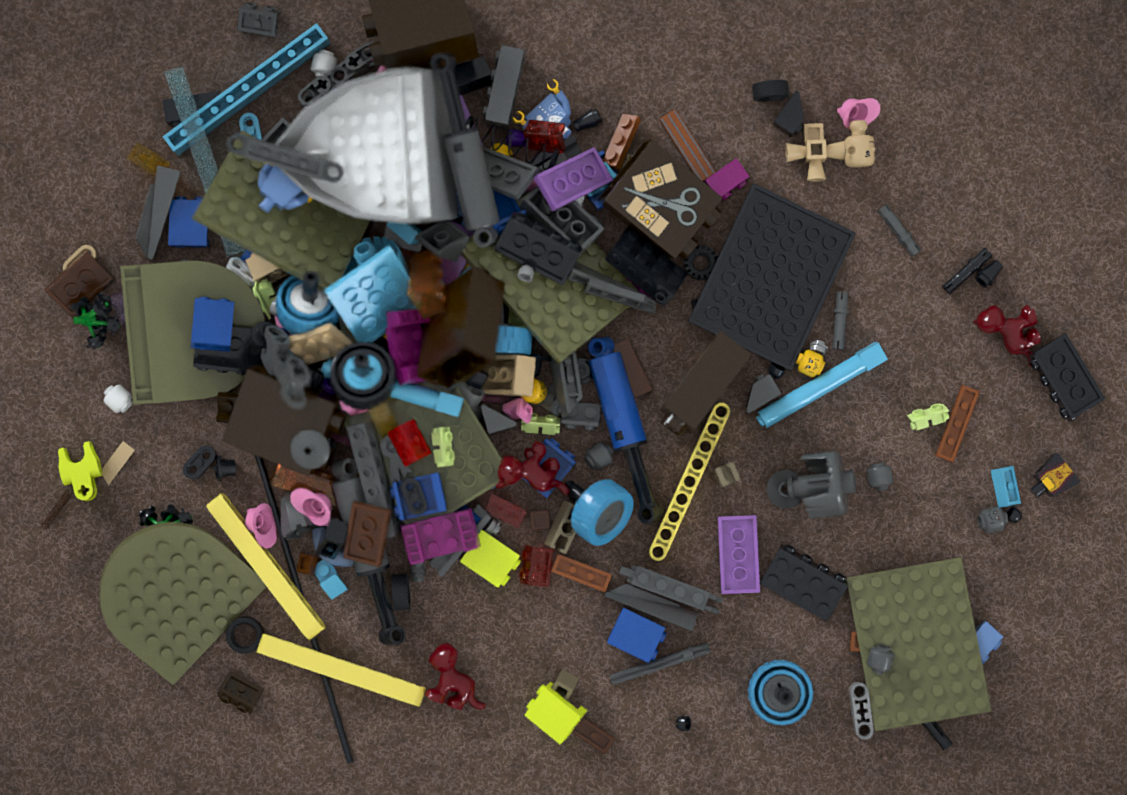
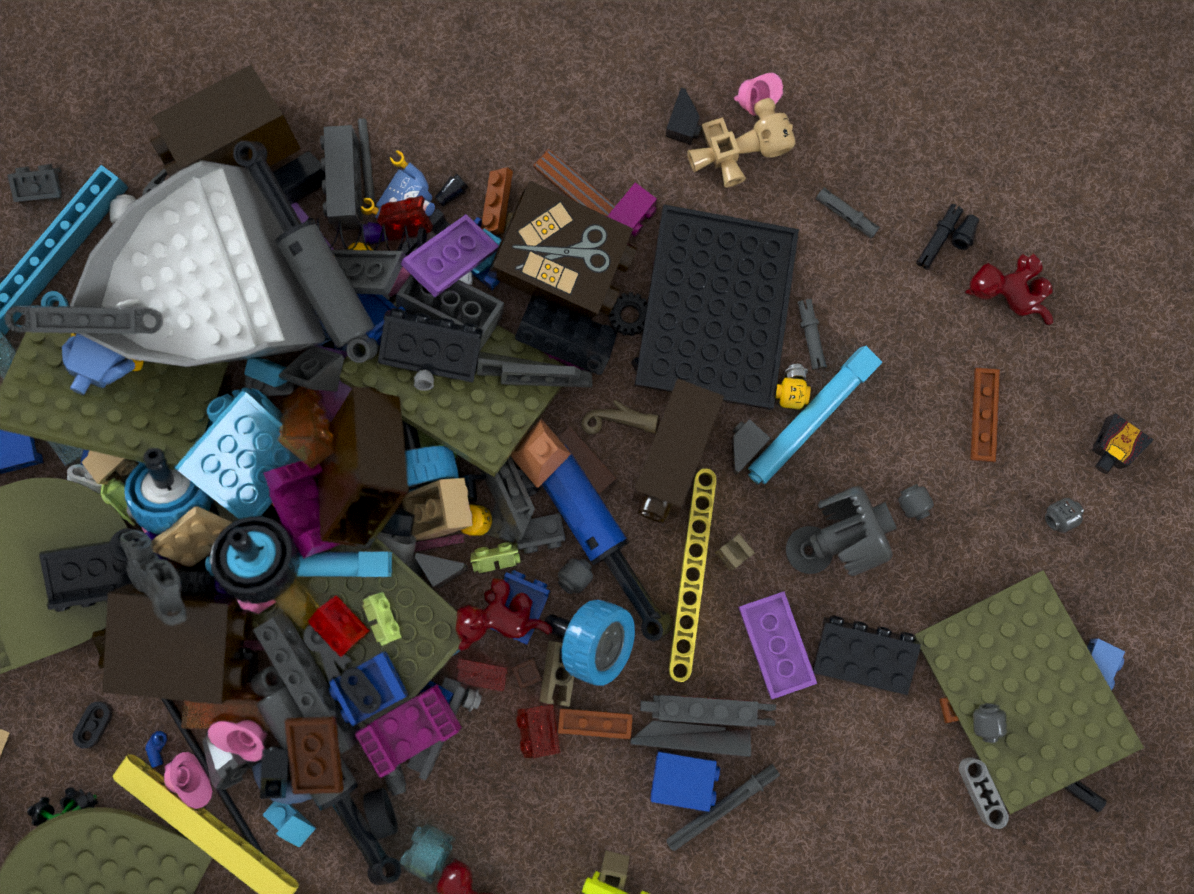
camera: 20 degrees left, 5 degrees down
(212, 324) = (57, 551): blue panel -> none
(224, 468) = (123, 722): black piece -> none
(241, 492) = (154, 748): none -> blue arm
(307, 564) = (256, 812): reddish brown tile -> none
(318, 445) = (223, 665): dark grey dish -> none
(428, 631) = (427, 853): none -> clear light blue brick
(491, 560) = (481, 740): neon yellow panel -> none
(518, 409) = (463, 547): bright pink bracket -> none
(526, 76) = (366, 160): none -> dark grey bar
(599, 355) = (540, 453): none -> nougat slope
(673, 342) = (624, 415): none -> dark tan plant
(681, 723) = (771, 876): black hinge -> none
(770, 90) = (651, 96): black tyre -> none
(776, 370) = (755, 413): black hinge -> none
(780, 692) = (880, 800): dark azure wheel -> none
(936, 413) = (957, 409): yellowish green hinge -> none
(1005, 486) = (1065, 472): medium azure slope -> none
(1014, 515) = (1089, 500): black hinge -> none
(1066, 377) = (1094, 324): black bracket -> none

